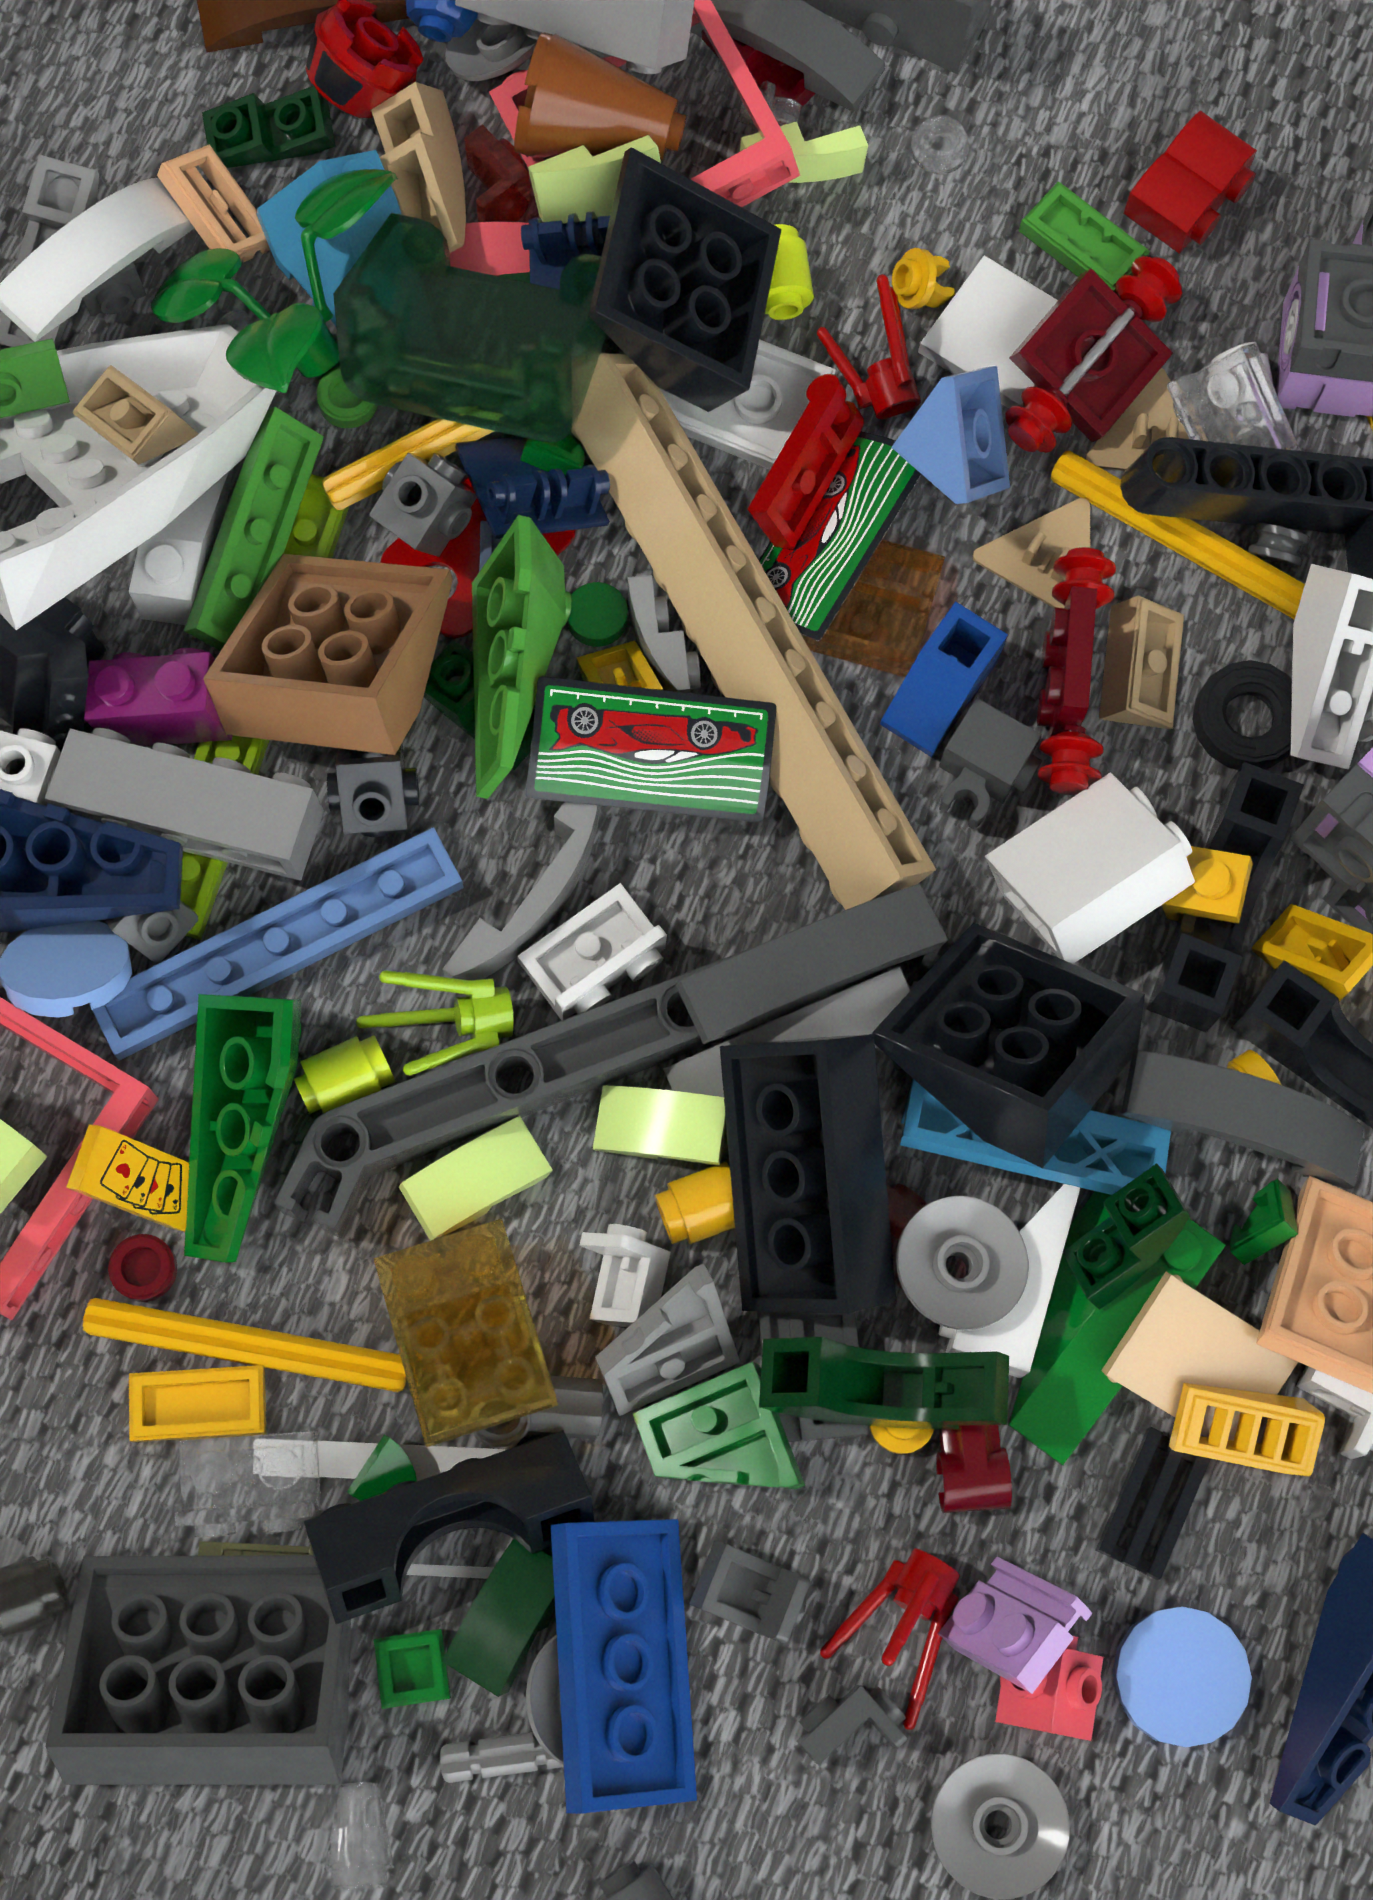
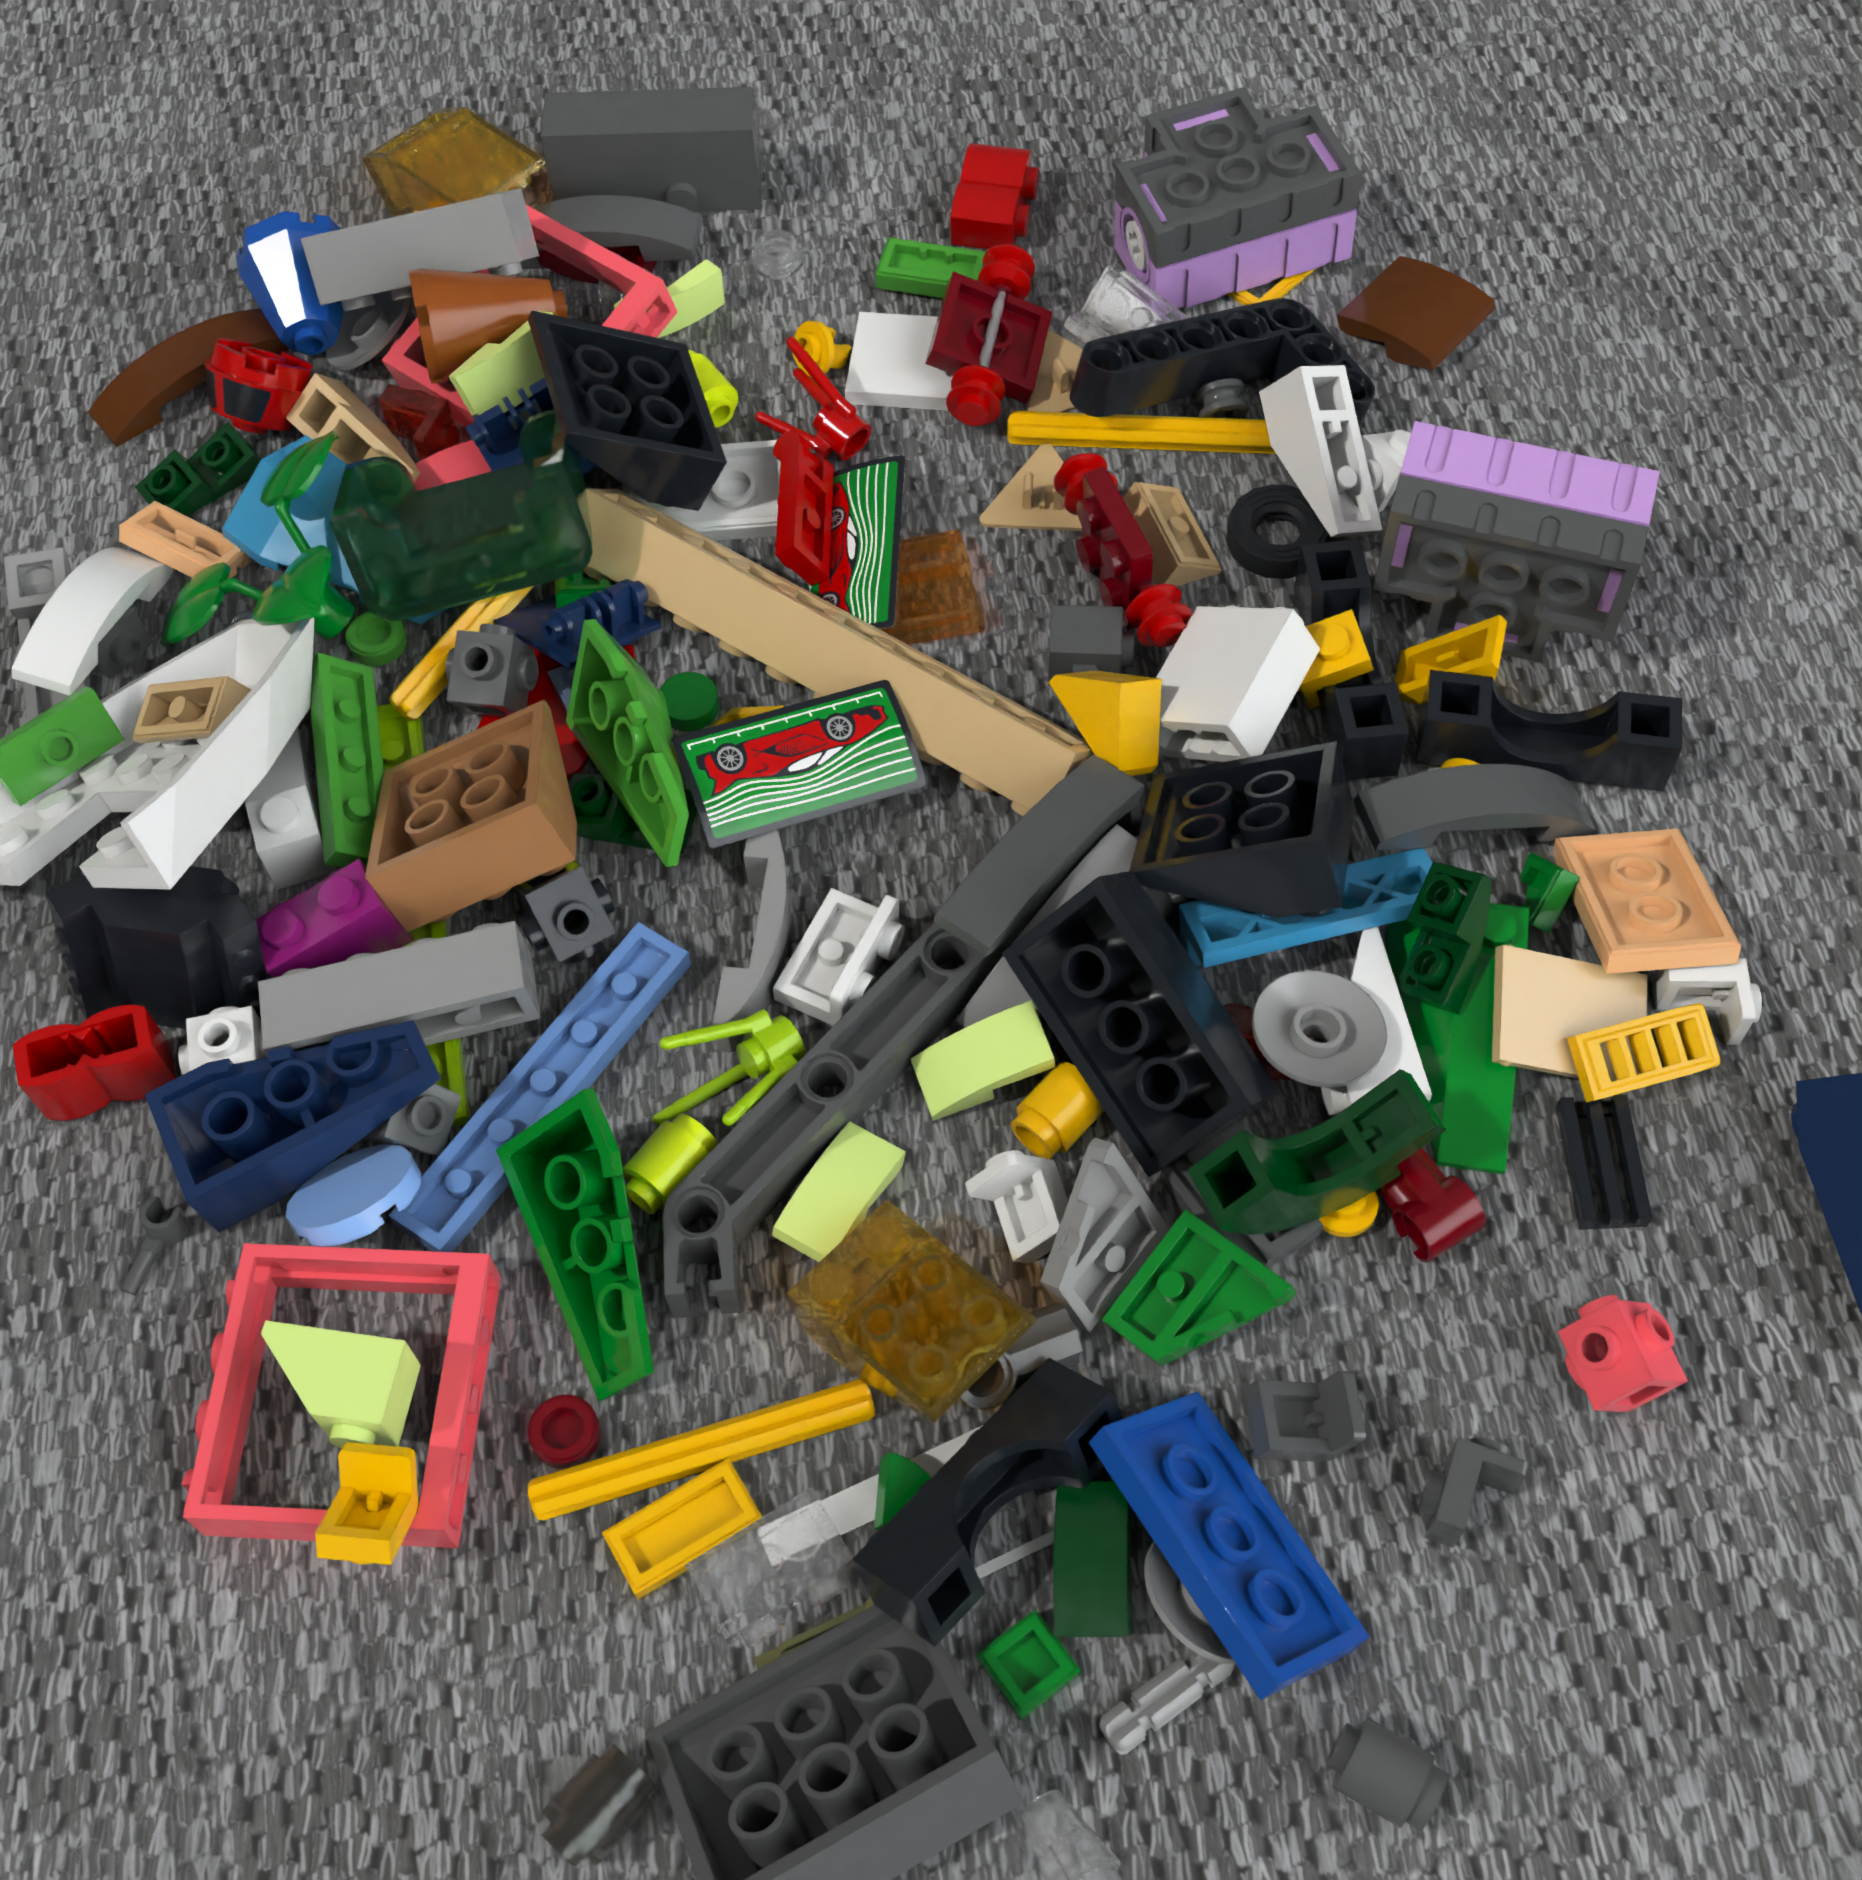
camera: 20 degrees left, 15 degrees down
(132, 1177) = (514, 1343): yellow tile -> none
(662, 649) = (741, 685): light grey slope -> none
(923, 1588) = (1456, 1339): red plant -> none
(944, 678) = (1015, 607): blue slope -> none
(960, 437) = (916, 424): medium blue slope -> none
(964, 849) = (1115, 716): none -> yellow slope
(1014, 1624) = (1558, 1311): lavender plate -> none
(1036, 1832) = (1678, 1478): light grey dish -> none
(1182, 1676) = (1725, 1293): light blue tile -> none

